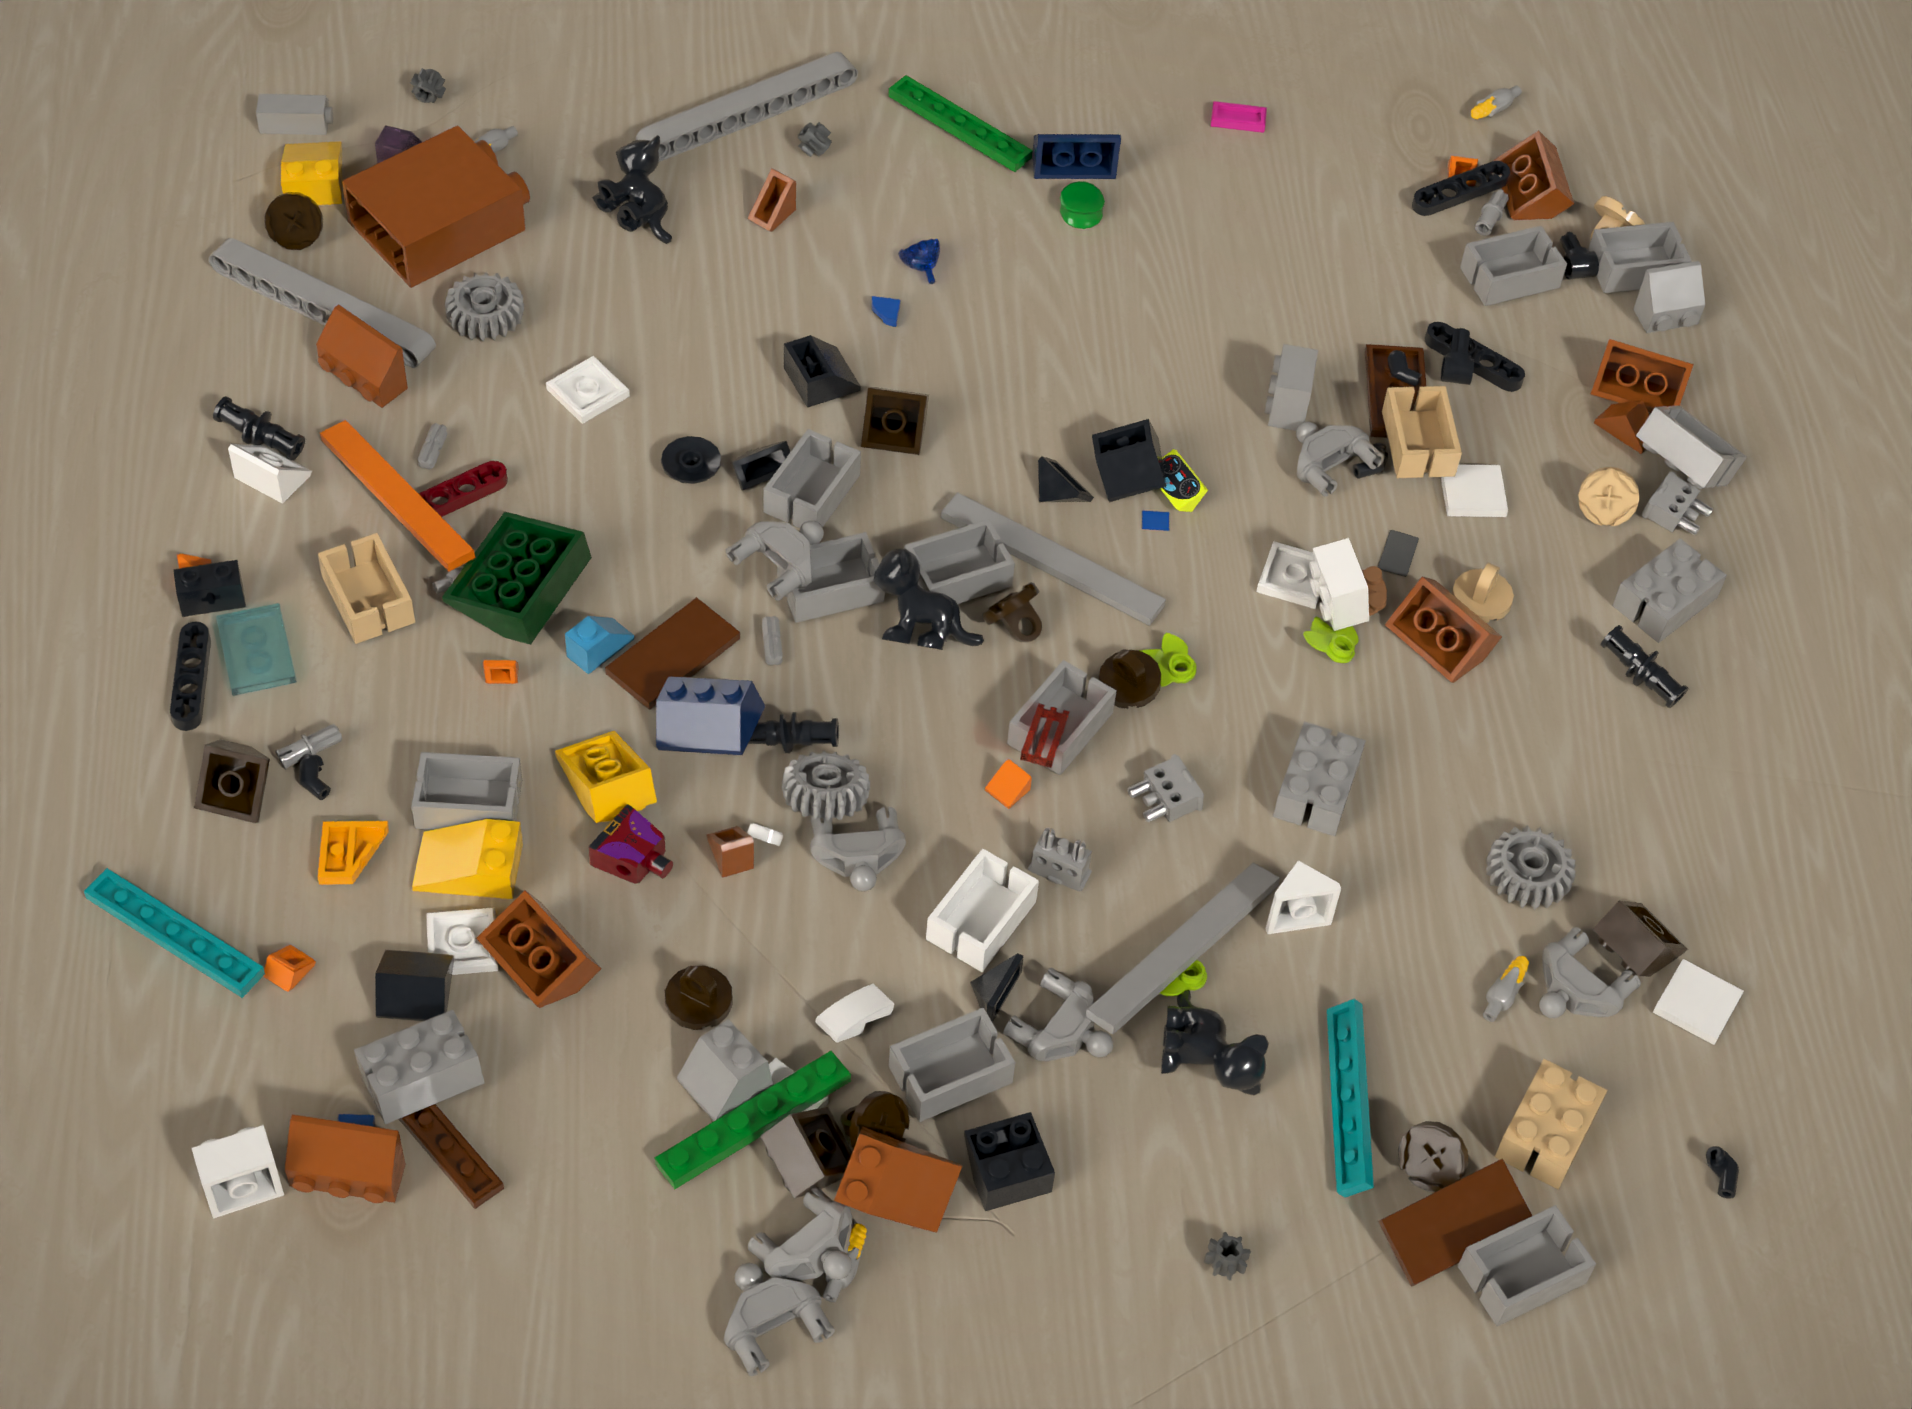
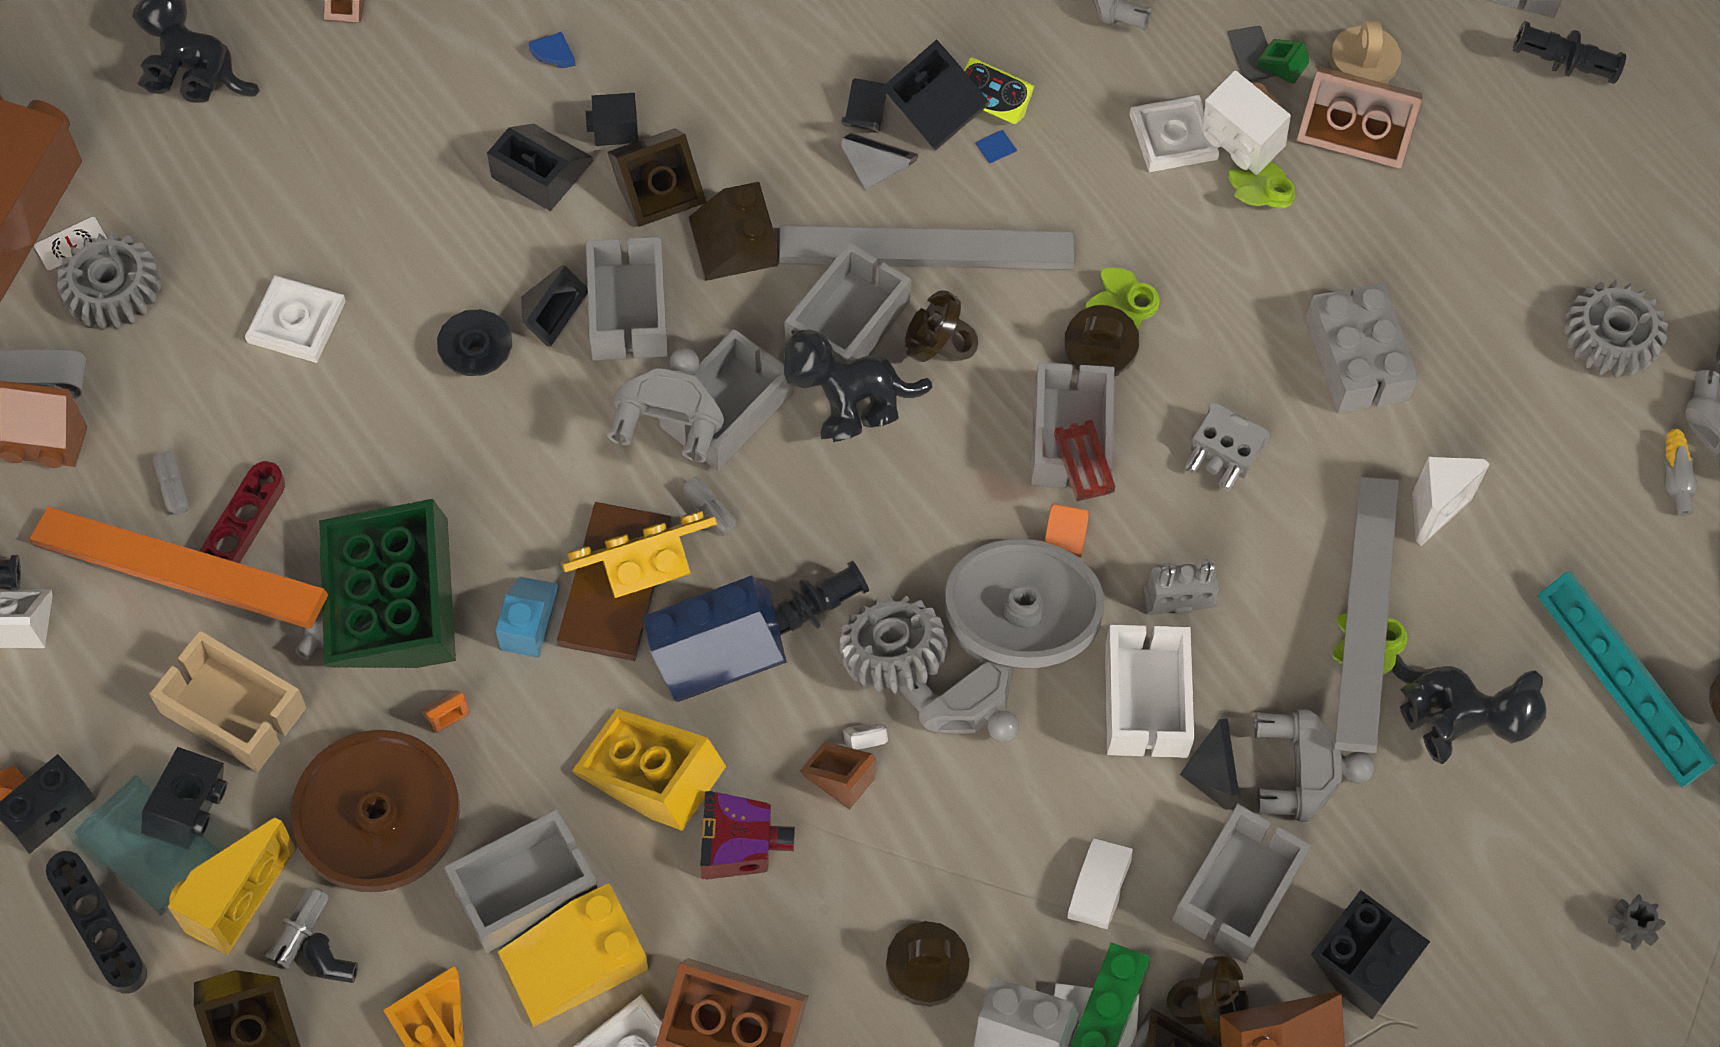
camera: 30 degrees left, 10 degrees up
(286, 694) = (230, 887): none -> yellow slope
(294, 629) = (180, 820): none -> black brick
(408, 701) = (370, 777): none -> reddish brown dish
(468, 271) = (59, 245): none -> white sticker
(698, 646) = (645, 559): none -> yellow bracket
(893, 369) = (613, 119): none -> black brick
(922, 481) = (734, 232): none -> dark brown slope
(937, 808) = (1024, 603): none -> light grey dish
(1076, 447) = (865, 105): none -> black bracket
(1416, 565) = (1285, 59): none -> green slope

